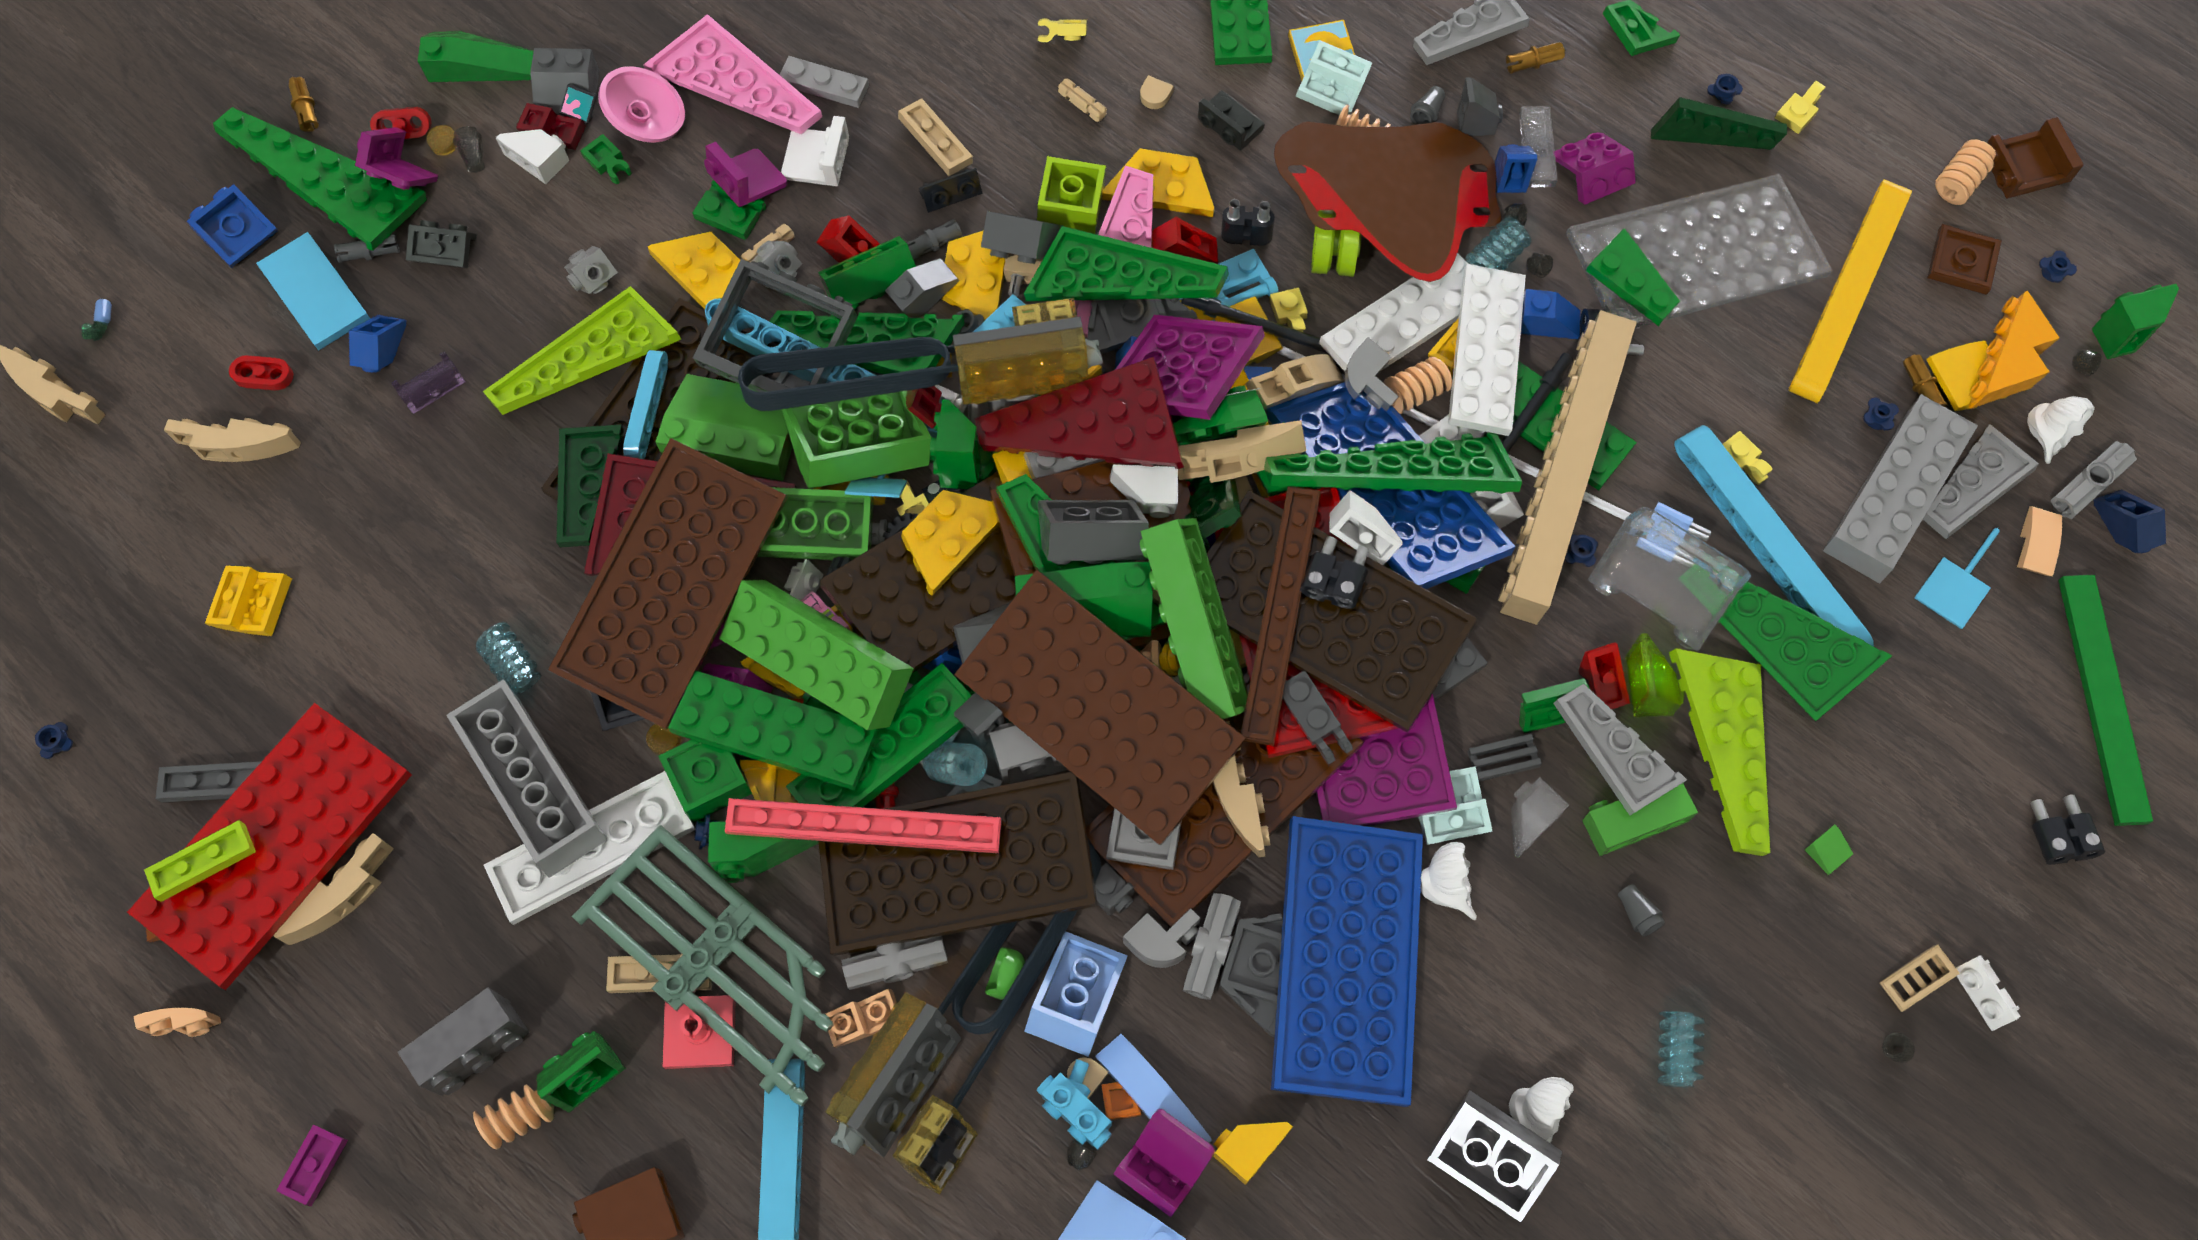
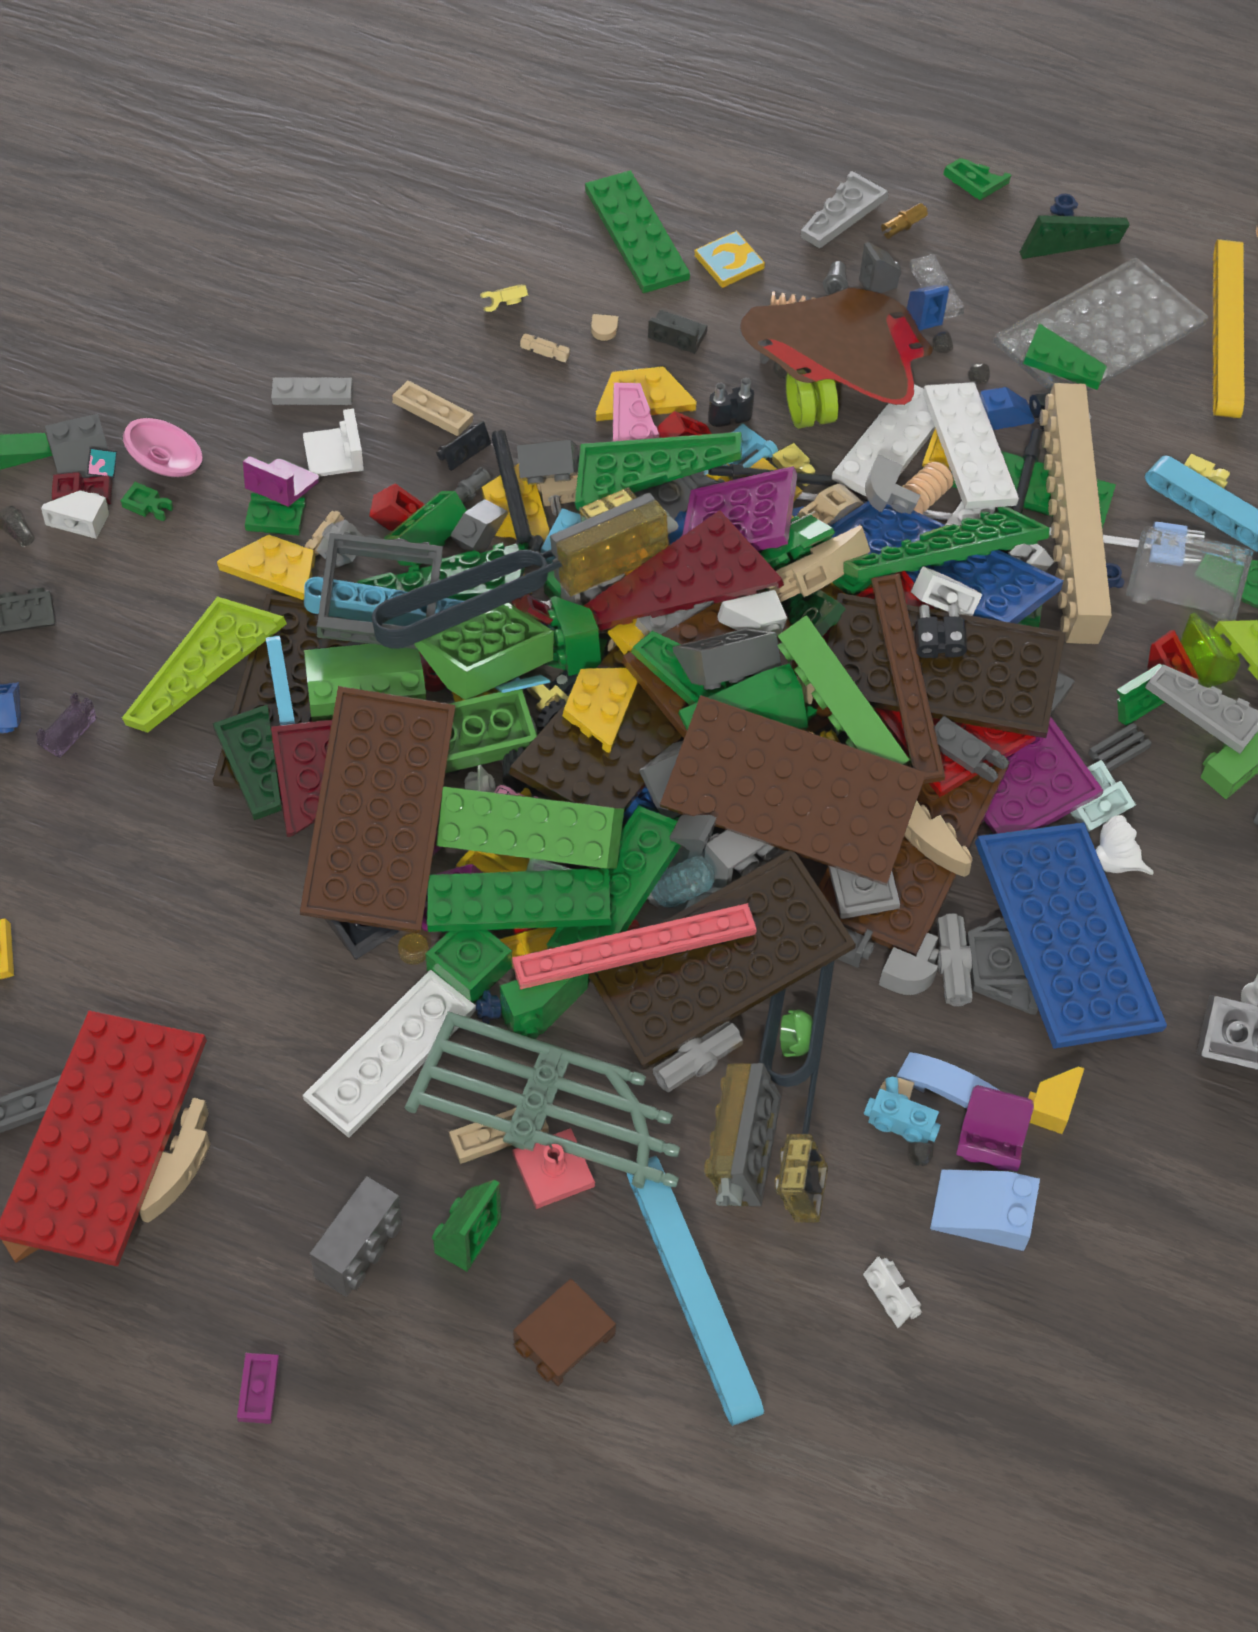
camera: 25 degrees left, 10 degrees down
(184, 1020) = (89, 1307): light nougat slope -> none
(199, 861) = (51, 1163): lime plate -> none
(506, 658) = (246, 926): clear light blue piece -> none
(513, 1117) = (424, 1281): light nougat piece -> none
(526, 778) = (314, 1008): light grey brick -> none
(599, 270) = (176, 592): light grey brick -> none
(724, 69) = (218, 402): bright pink wing -> none
(860, 1018) = (691, 1110): light nougat slope -> none
(971, 255) = (511, 487): none -> black axle
(1071, 194) = (573, 417): lime brick -> none
(1075, 993) = (861, 1033): light blue slope -> none
(1118, 1102) = (934, 1101): orange tile -> none
(1333, 78) = (749, 277): light aqua slope -> none
(1500, 245) = (943, 365): clear light blue piece -> none
(1534, 813) = (1162, 780): clear slope -> none
(1599, 166) = (994, 285): magenta bracket -> none
(1800, 110) = (1129, 206): light yellow plate -> none

